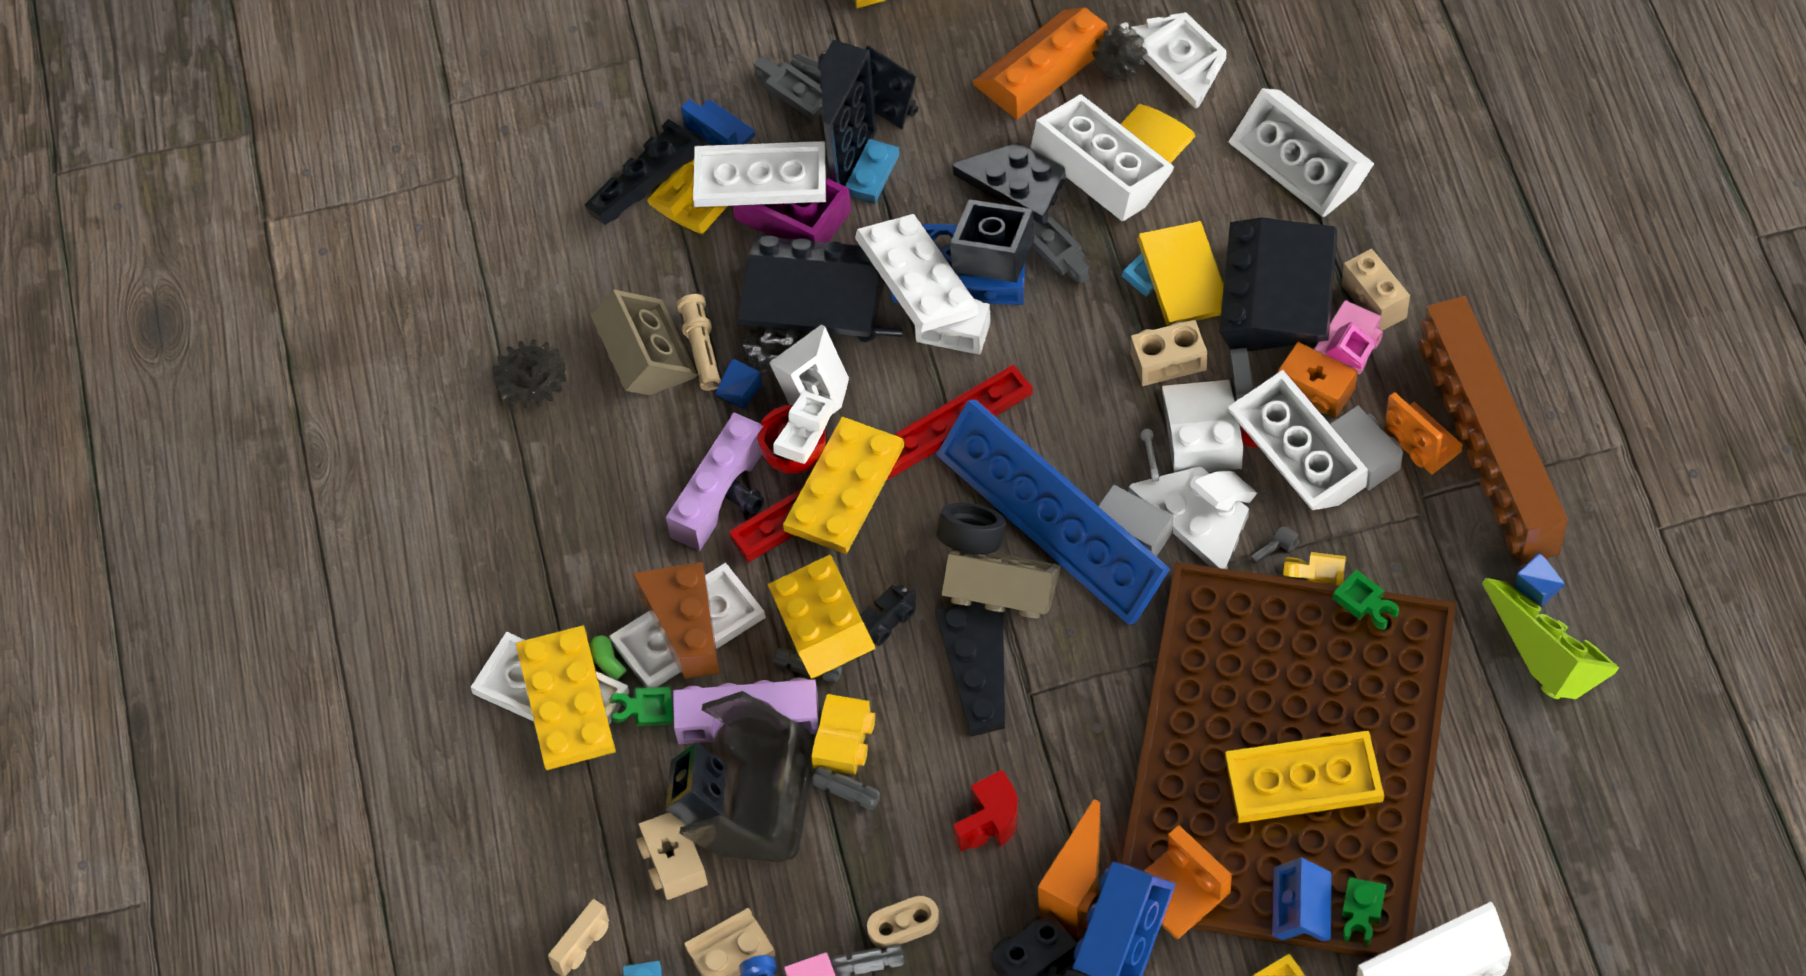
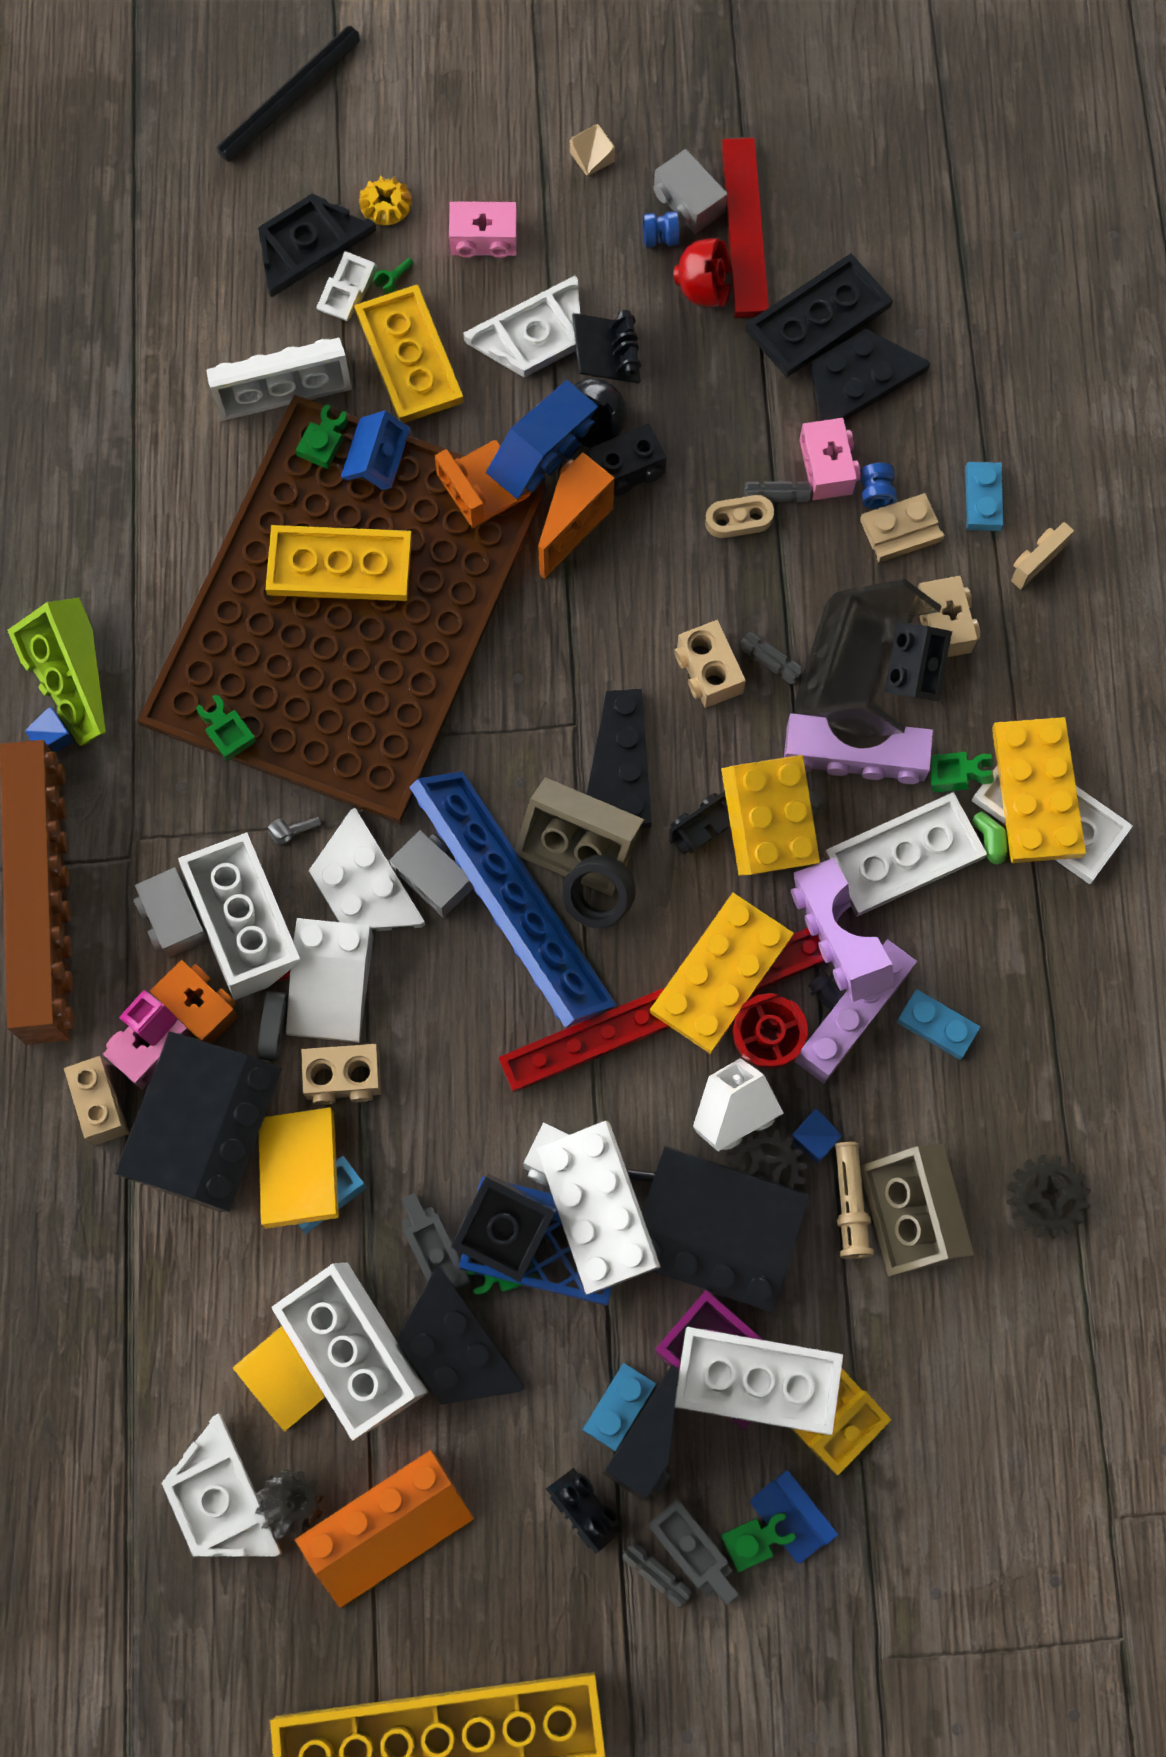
camera: 175 degrees left, 15 degrees up
(640, 175) = (879, 1464): black wing -> none
(640, 494) = (938, 1024): none -> dark azure plate
(682, 612) = (911, 842): dark orange wedge -> none
(719, 486) = (858, 961): none -> lavender arch
(746, 103) = (751, 1543): none -> green plate
(805, 427) = (756, 1025): white slope -> none
(842, 734) = (766, 706): yellow brick -> none
(899, 766) = (717, 662): none -> tan brick
(996, 813) = (633, 597): red brick -> none
(1147, 436) = (390, 984): light grey hinge -> none
(1223, 489) = (328, 883): white slope -> none
(1300, 151) = (118, 1313): white slope -> none
(1321, 568) = (257, 784): yellow plate -> none
(1420, 434) = (106, 918): orange bracket -> none

